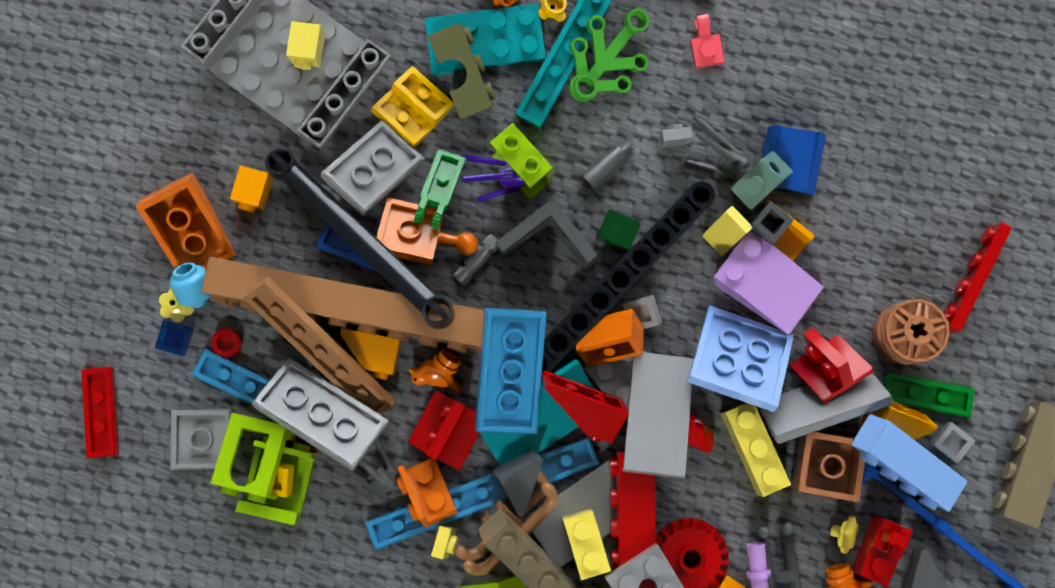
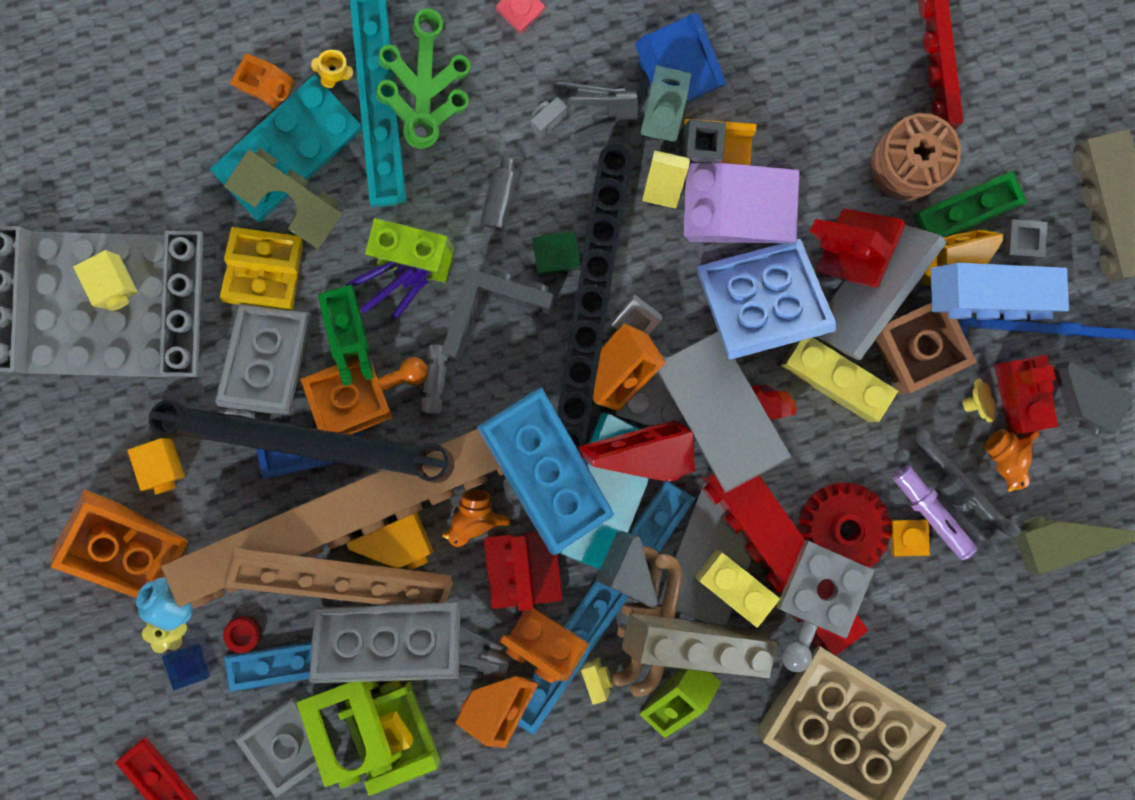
camera: 35 degrees left, 5 degrees up
(362, 513) = (495, 710): none -> orange slope

